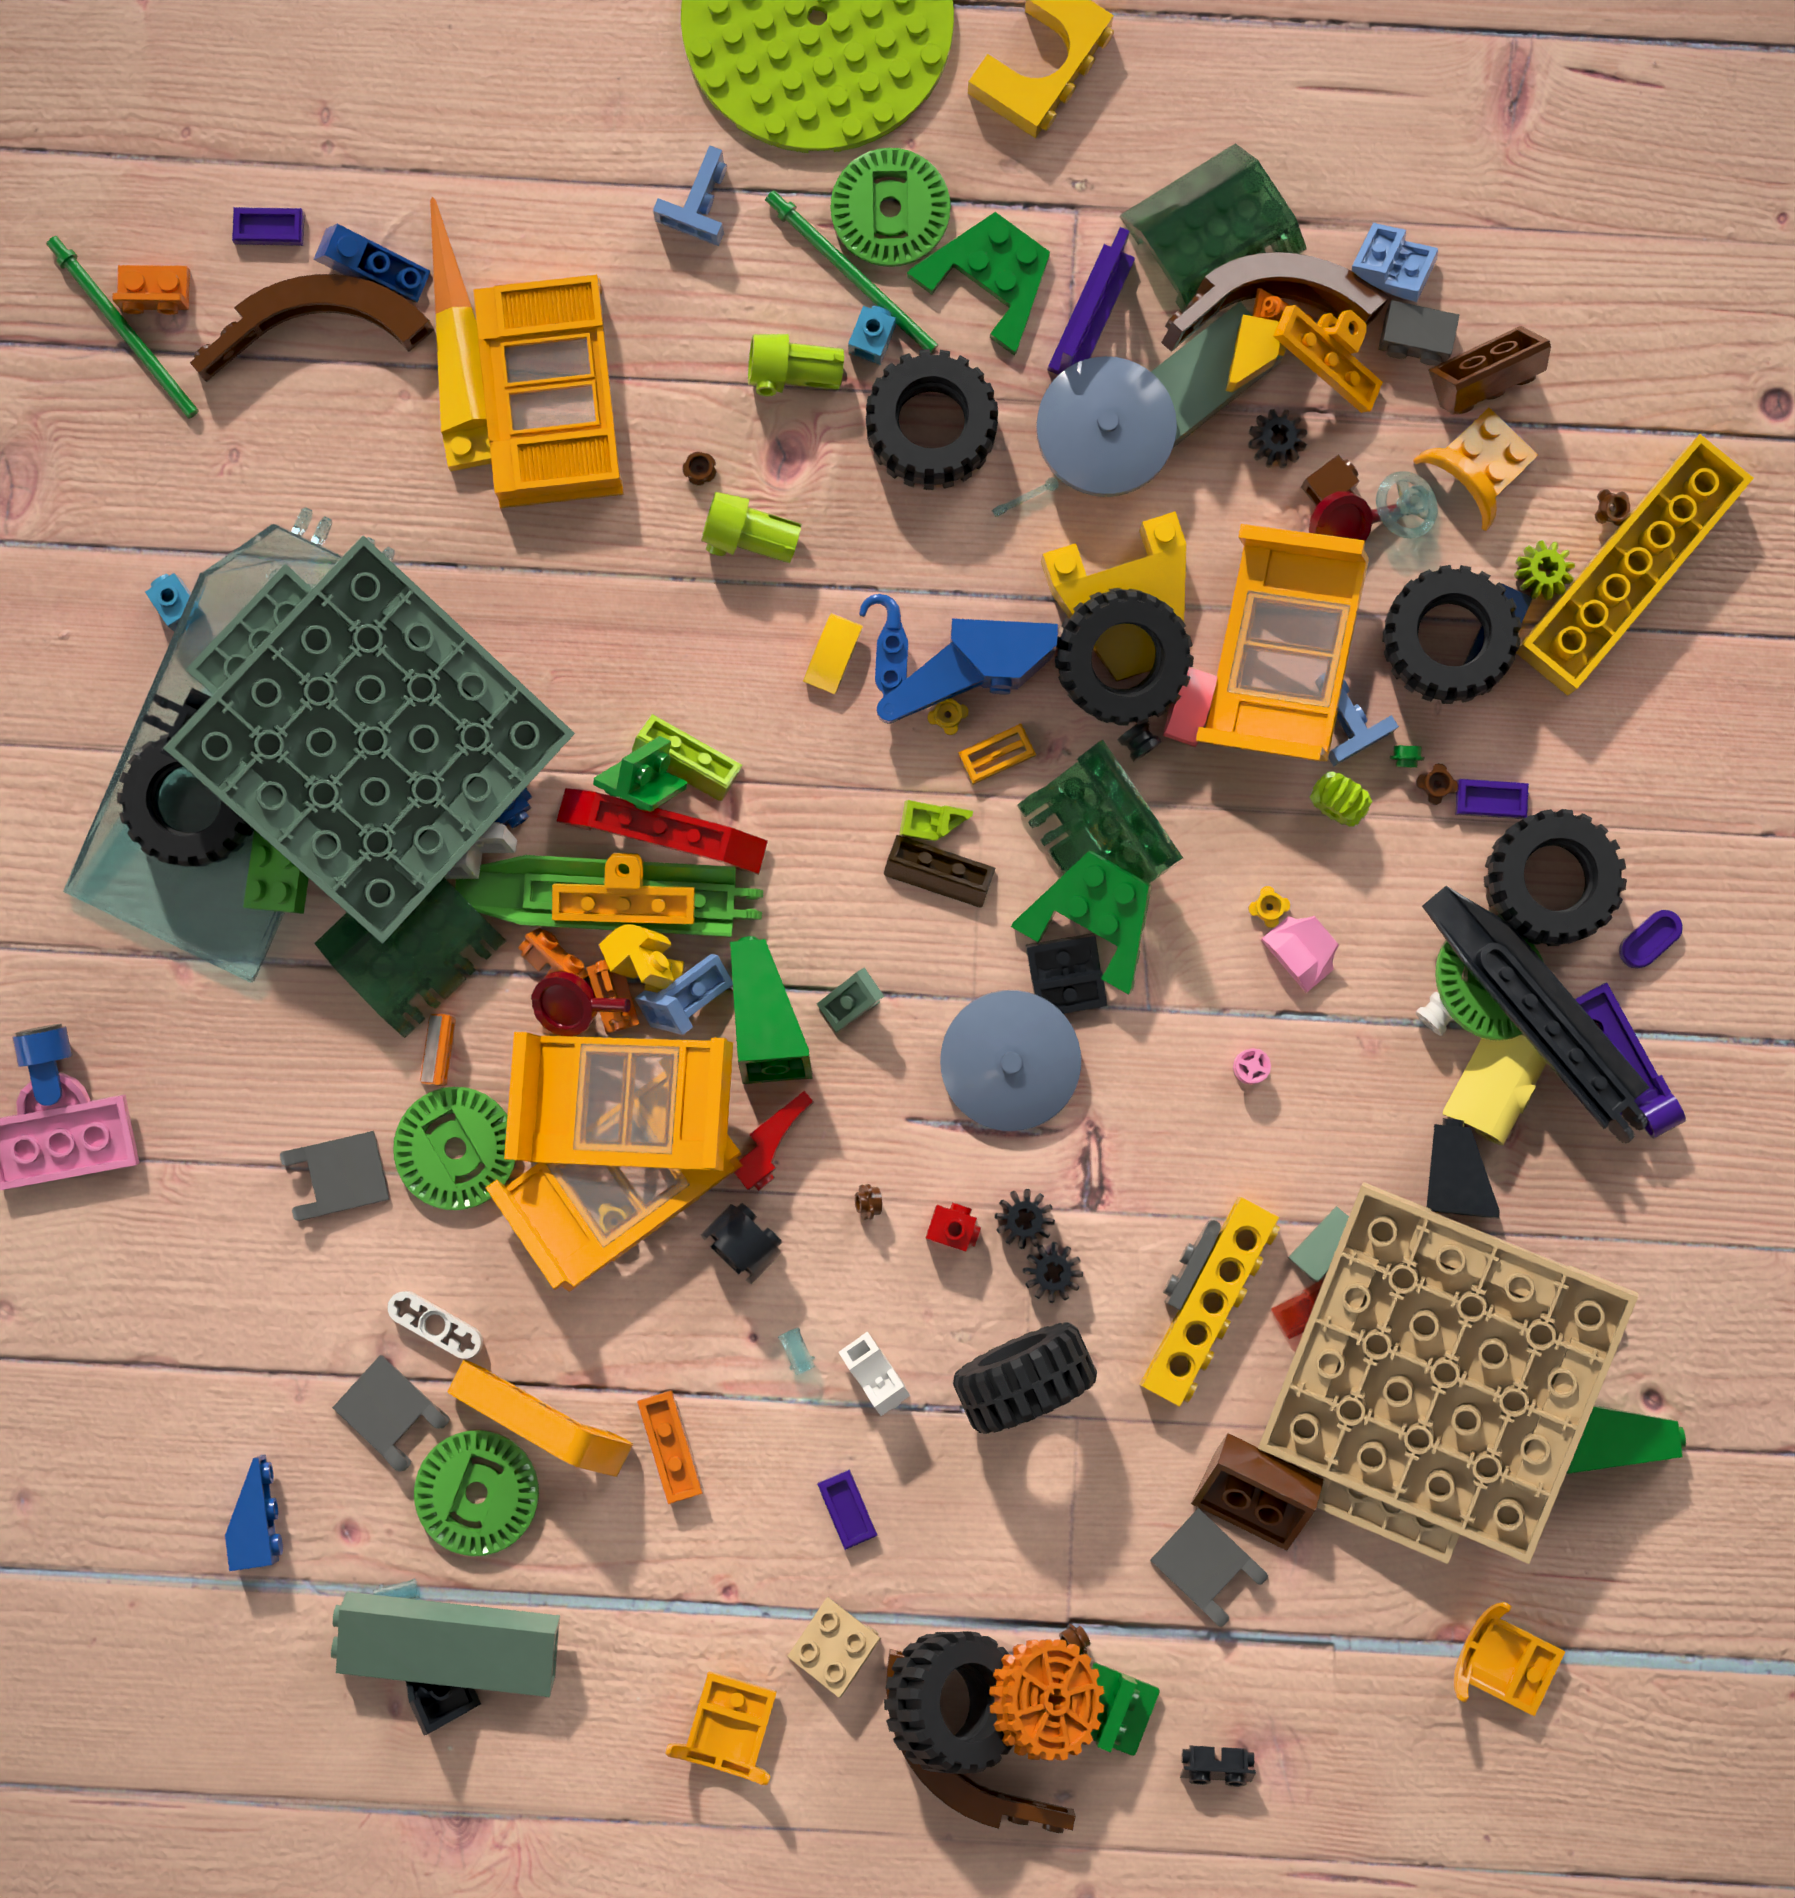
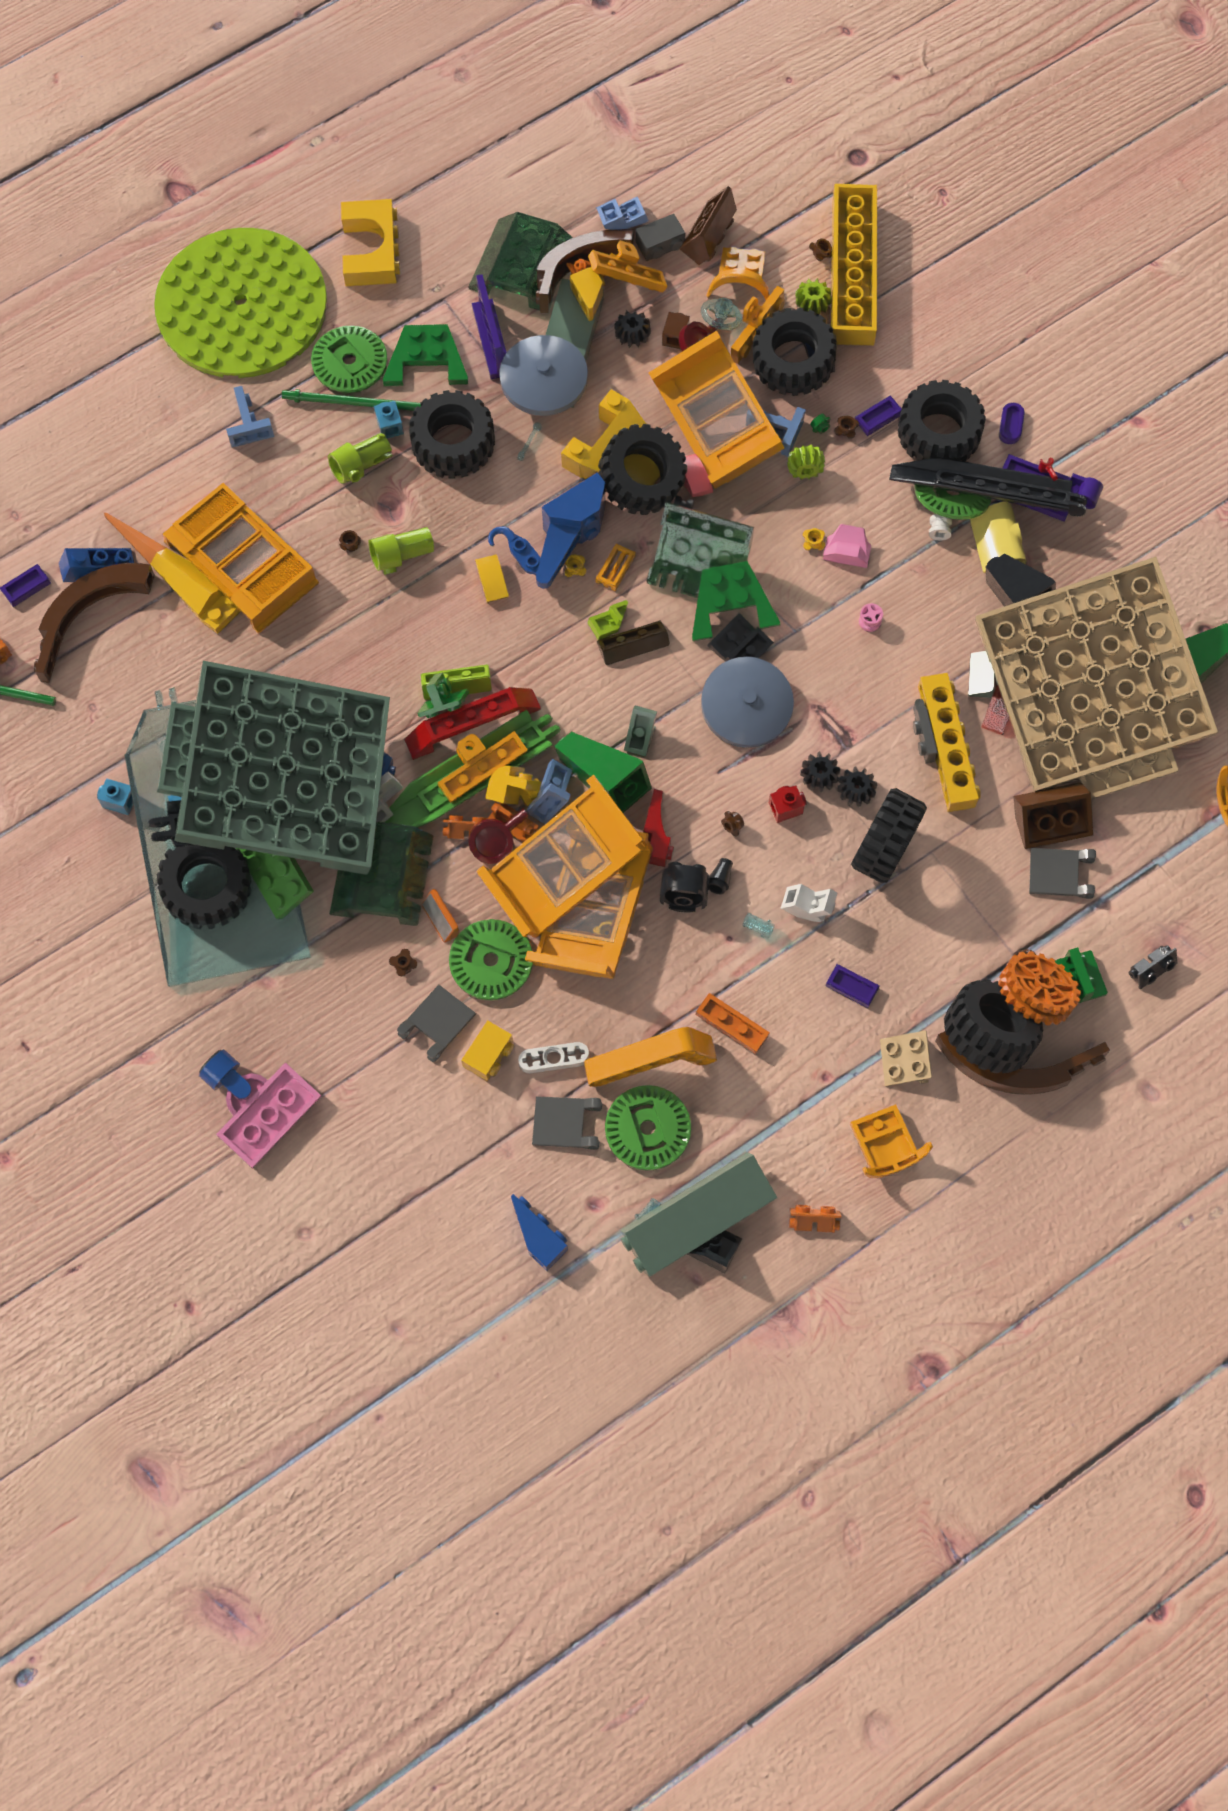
camera: 35 degrees left, 15 degrees down
(359, 1066) = (410, 964): none -> reddish brown plate
(363, 1260) = (488, 1050): none -> yellow brick
(592, 1756) = (824, 1217): none -> orange hinge
(800, 1256) = (720, 876): none -> black cone
(1441, 549) = (754, 316): none -> light orange plate
(1635, 1046) = (1047, 468): none -> red hand

